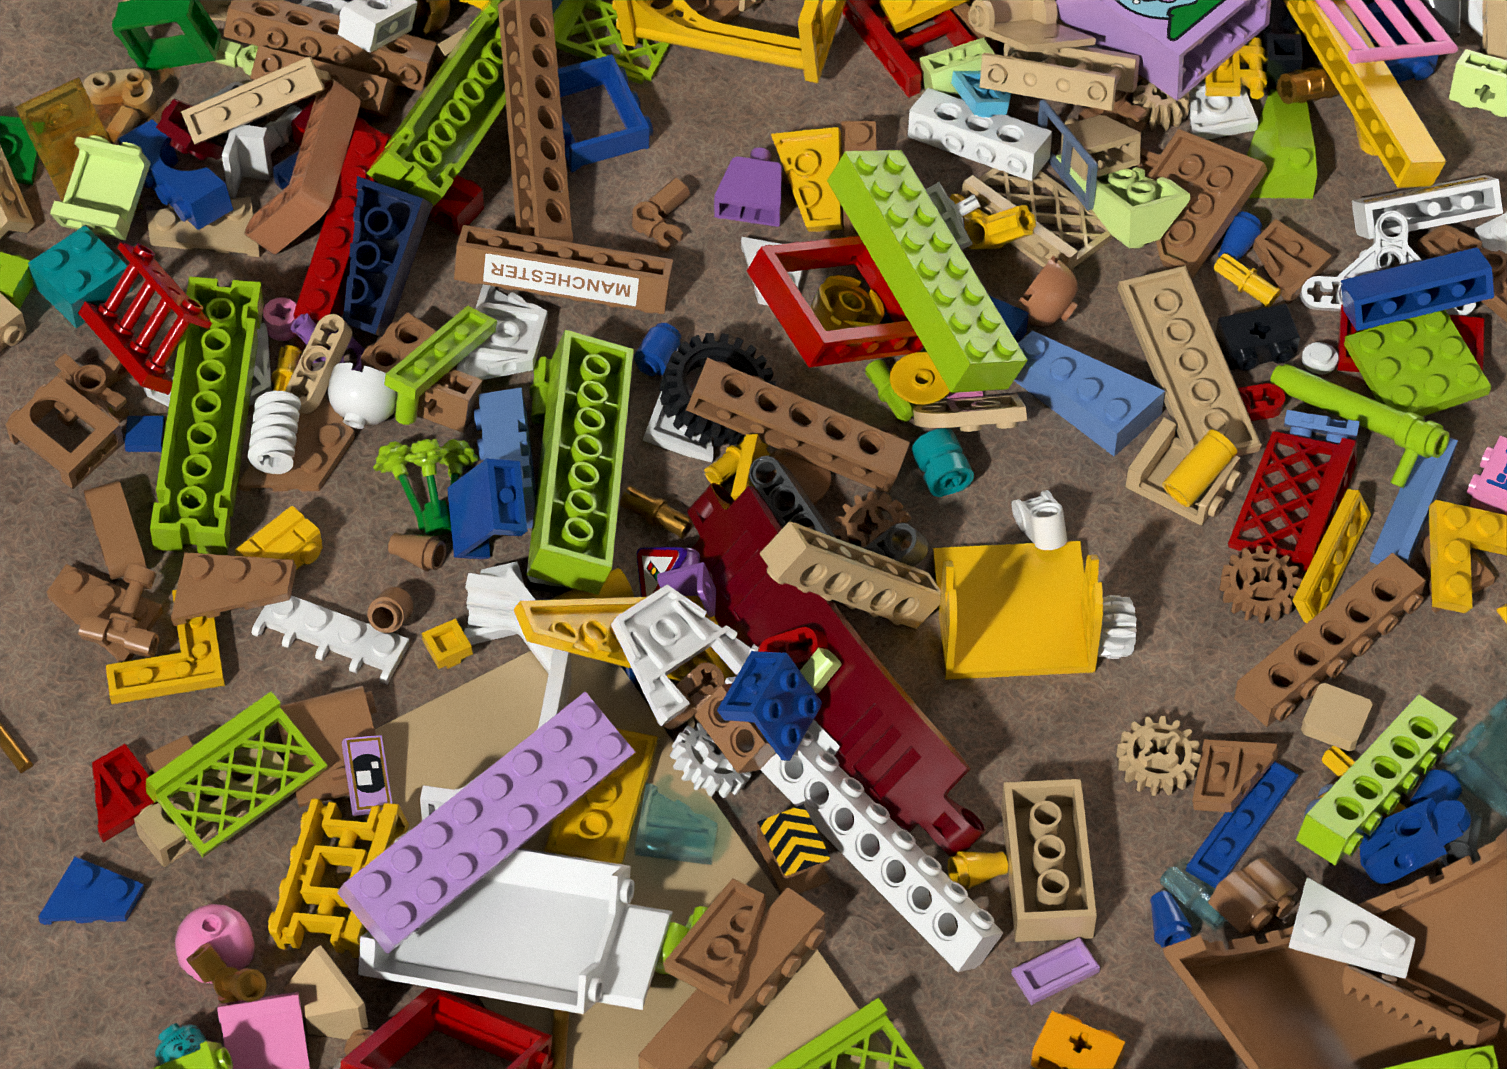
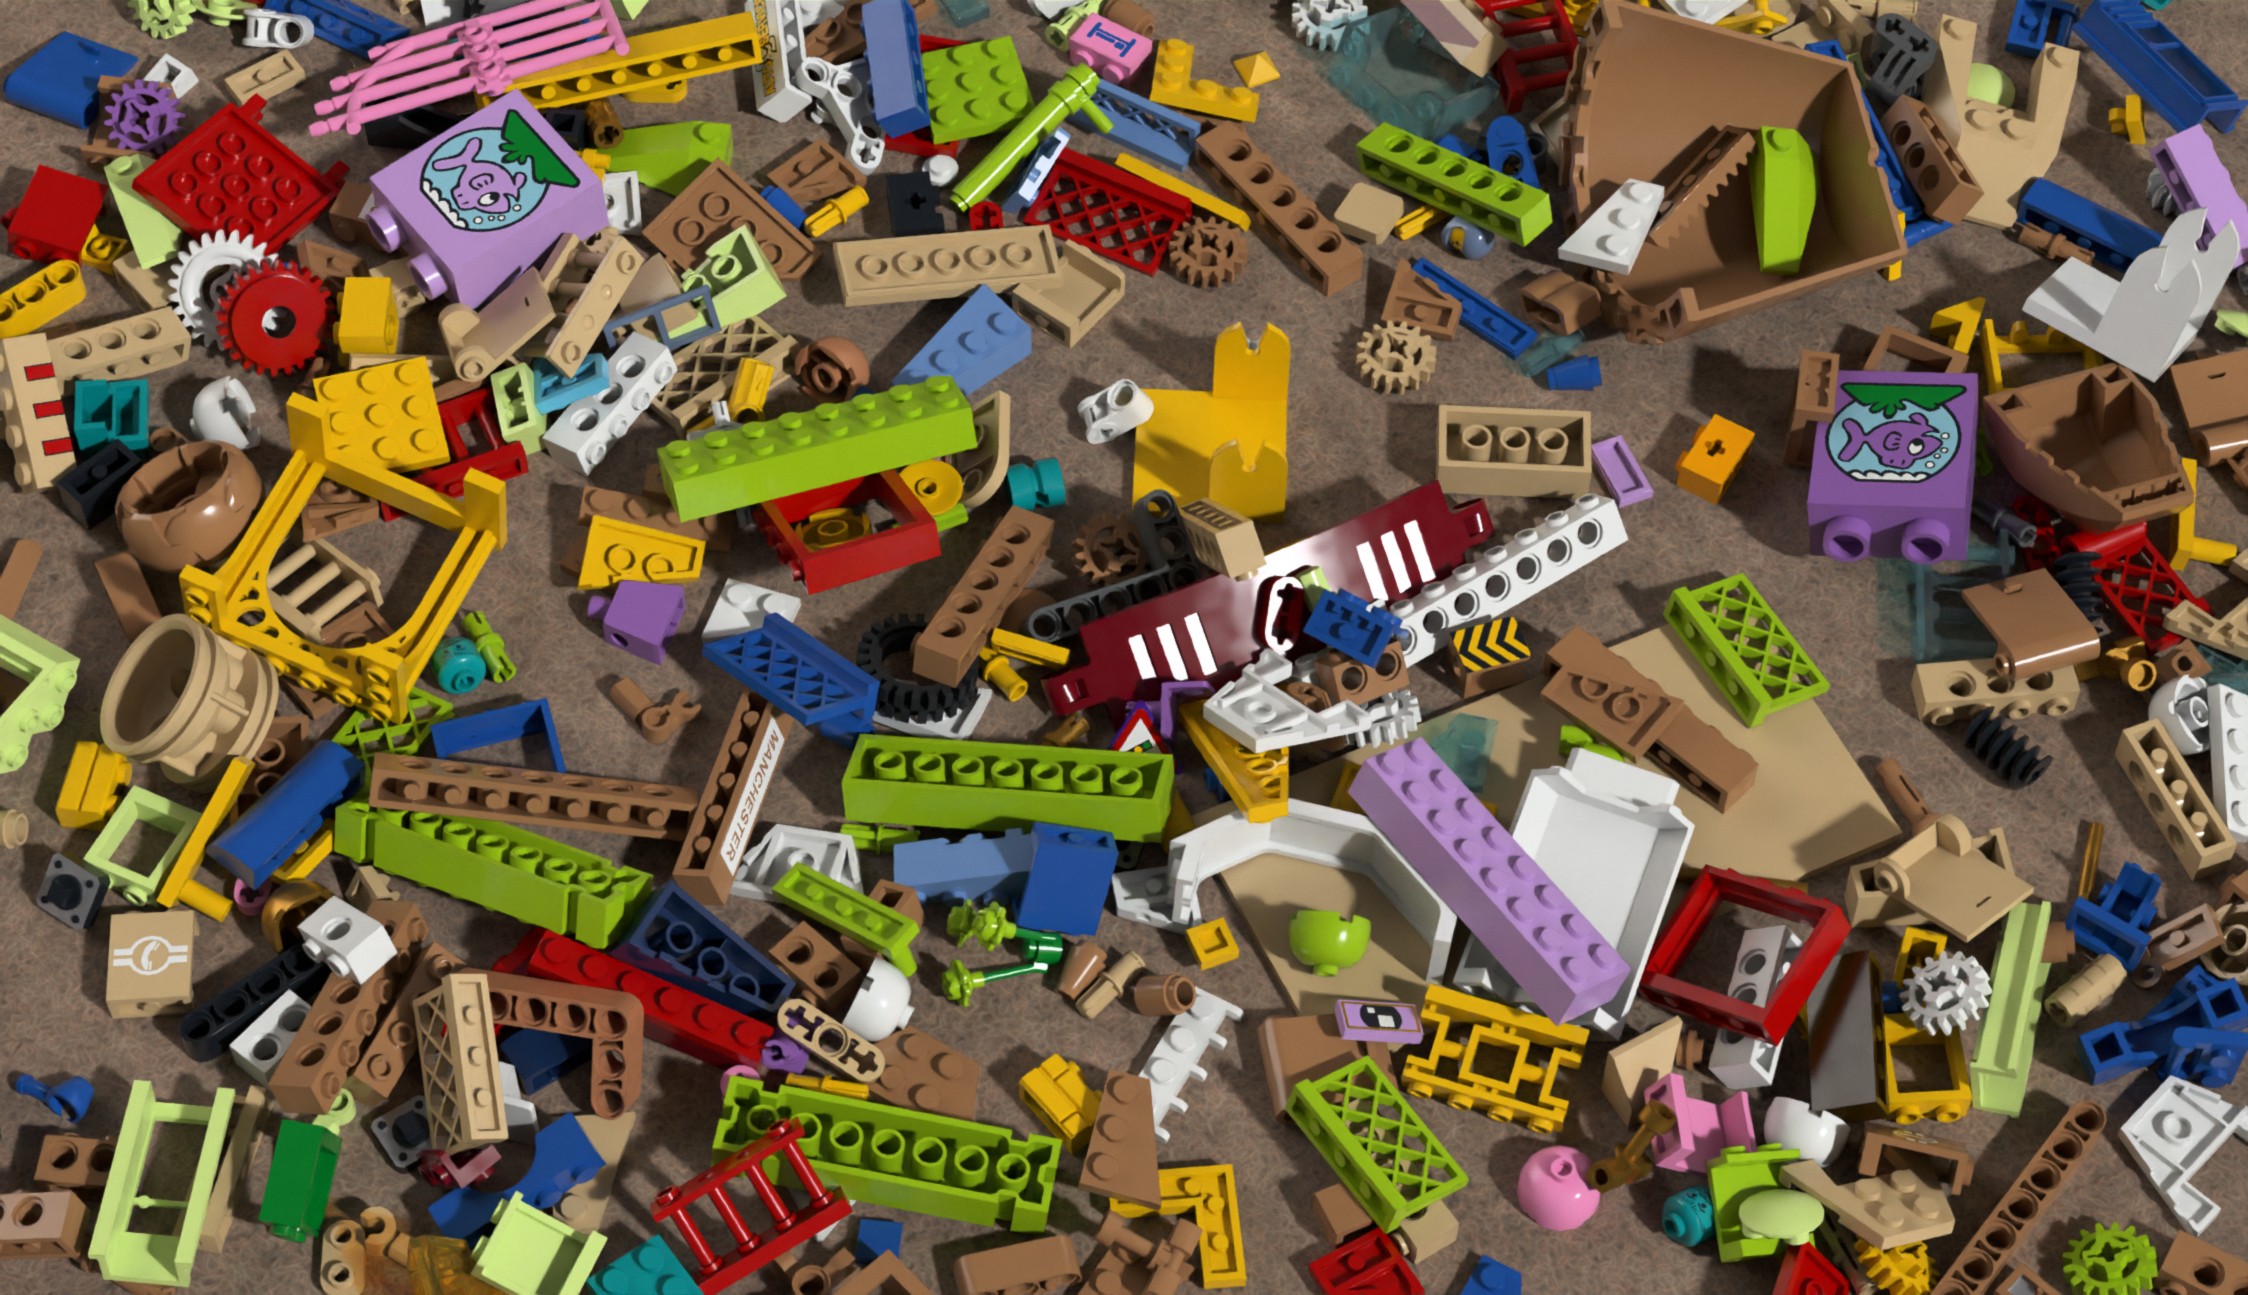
camera: 85 degrees left, 0 degrees up
(274, 432) = (923, 1087): white piece -> none
(406, 575) = (1110, 984): none -> tan axle
(447, 727) = (1328, 940): none -> lime cylinder
(685, 70) = (457, 665): none -> teal head
(698, 315) = (799, 657): none -> blue fence
(711, 91) = (490, 646): none -> lime pin
(976, 867) = (1508, 515): yellow cone -> none
(1199, 468) = (1080, 269): yellow pin -> none

